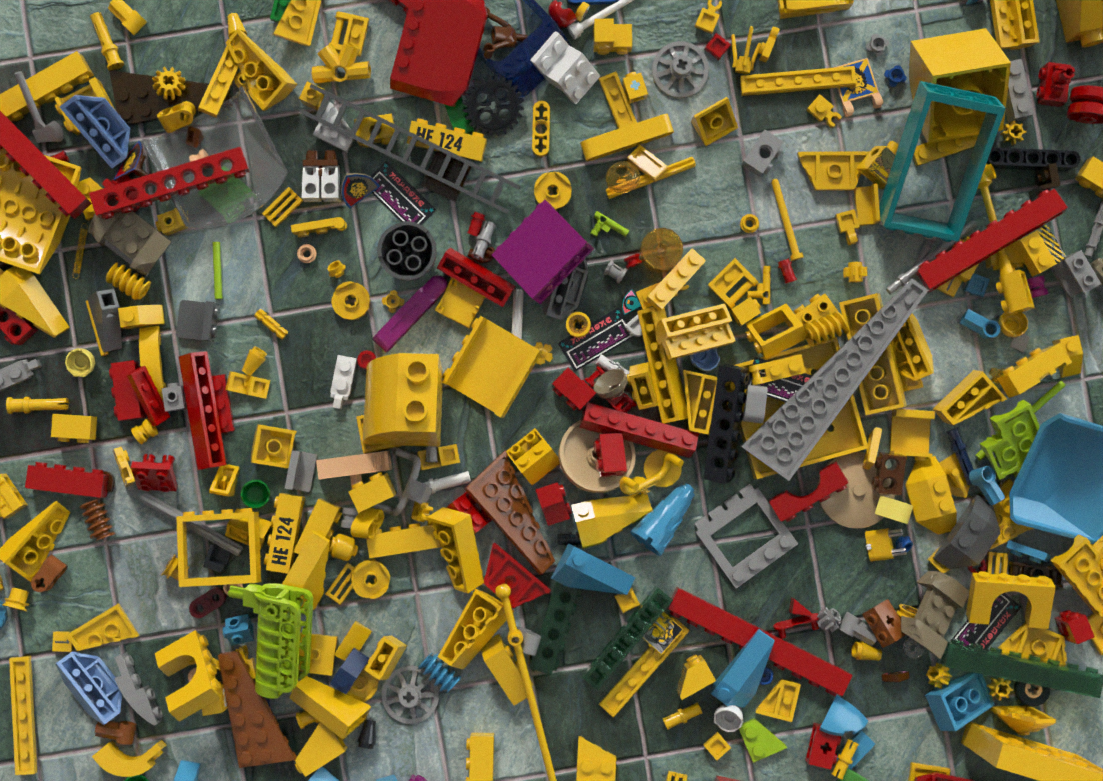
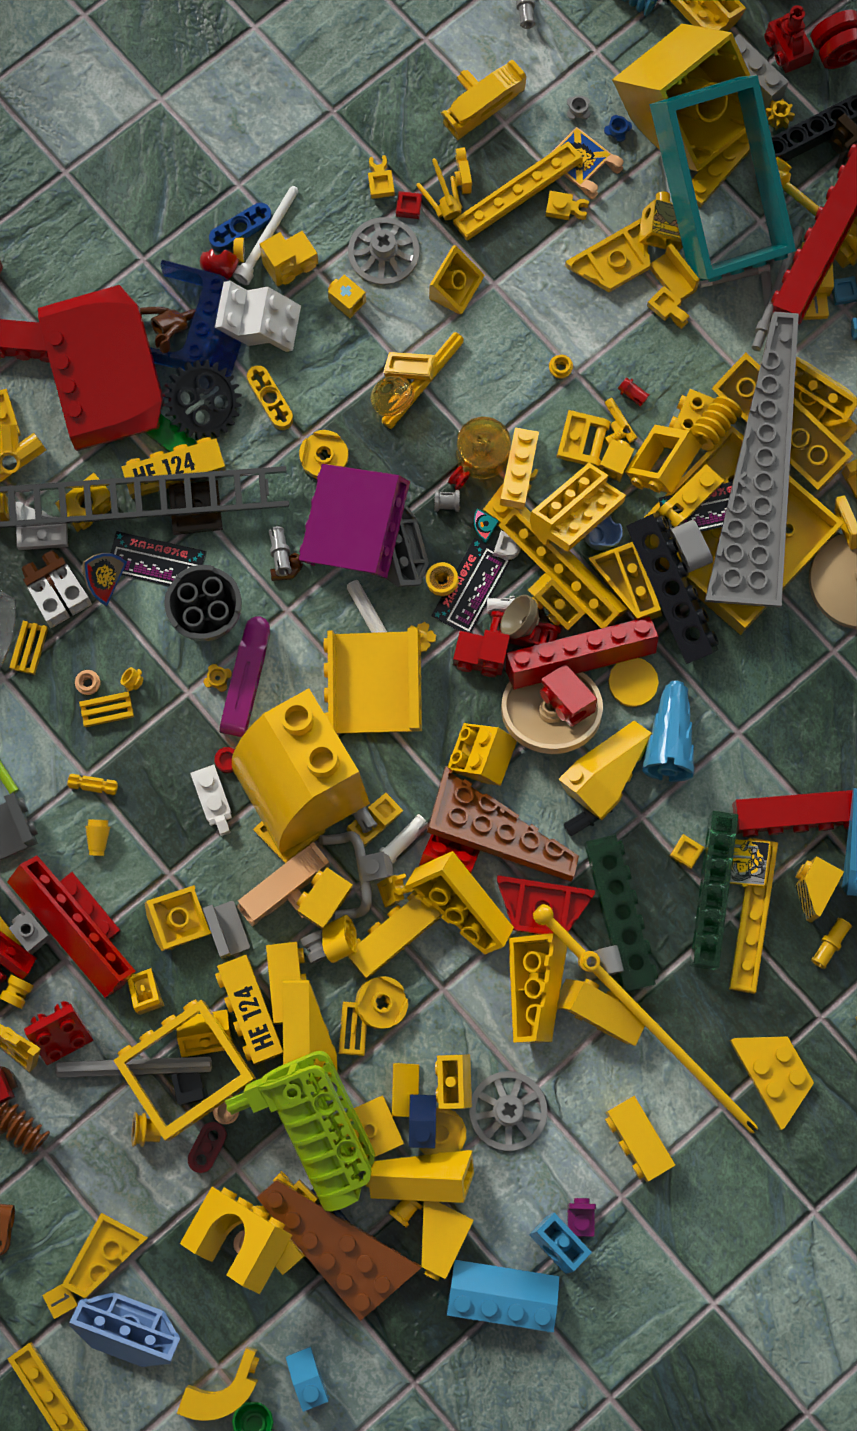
camera: 30 degrees left, 10 degrees down
(120, 731) = (192, 1365): dark orange piece -> none
(138, 697) = (193, 1309): light grey slope -> none
(238, 630) = (263, 1155): dark azure brick -> none
(247, 385) = (106, 868): yellow slope -> none
(255, 494) = (188, 984): green hair -> none
(293, 274) = (103, 700): none -> yellow tile
(319, 226) = (84, 643): yellow plate -> none
(342, 547) = (328, 985): yellow head -> none
(356, 291) = (169, 690): yellow plate -> none
(367, 736) = (488, 1188): black cone -> none
(439, 672) = (526, 1062): dark azure piece -> none
(460, 303) = (295, 634): yellow piece -> none
(476, 223) = (260, 539): red pin -> none
(476, 277) = (296, 594): red brick -> none
(553, 504) = (534, 791): red brick -> none
(587, 572) = (626, 839): dark azure wedge -> none
(607, 225) = (406, 457): lime hose -> none
(617, 100) = (336, 321): yellow tile -> none
(627, 137) = (370, 352): yellow beam -> none
(641, 485) = (616, 712): yellow piece -> none
(761, 557) = (804, 714): light grey hinge -> none
(768, 143) = (529, 271): light grey brick -> none
(788, 504) = (824, 580): red arch -> none
(796, 255) = (632, 369): yellow bar -> none
(855, 272) = (707, 349): yellow gear -> none

